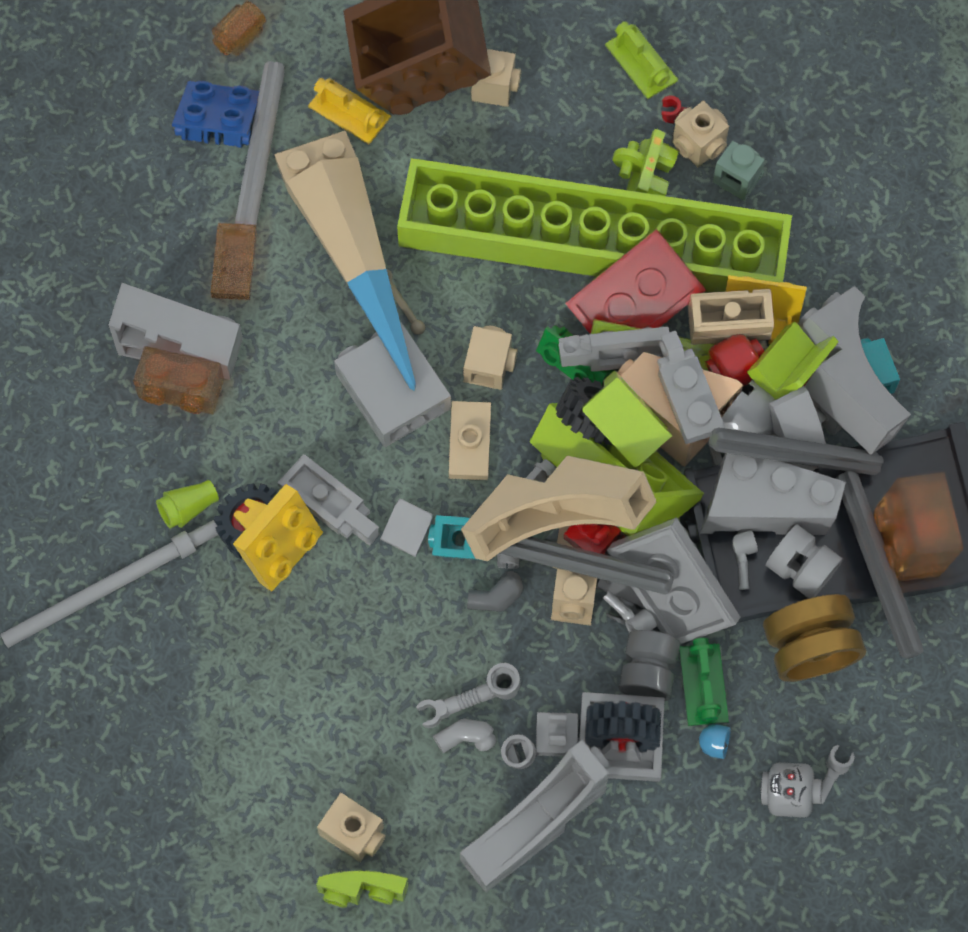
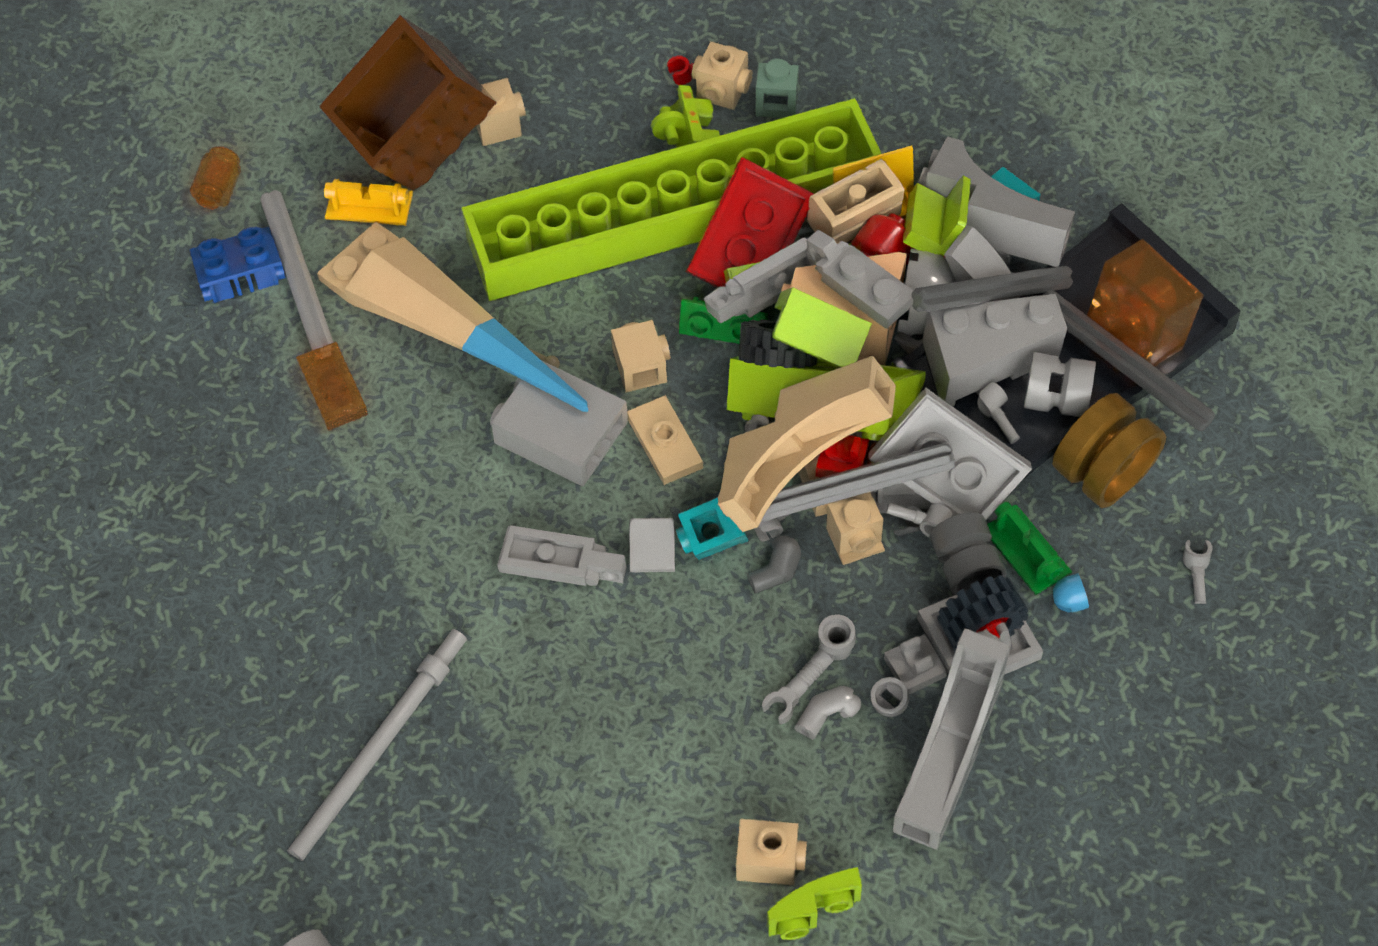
camera: 25 degrees left, 10 degrees down
(164, 324) = (311, 474): light grey wedge -> none
(178, 380) = (340, 516): clear orange brick -> none
(185, 503) = (411, 631): lime cone -> none
(267, 530) = (514, 610): yellow plate -> none
(640, 60) = (625, 42): lime hinge -> none
(790, 789) = (1171, 601): light grey head -> none

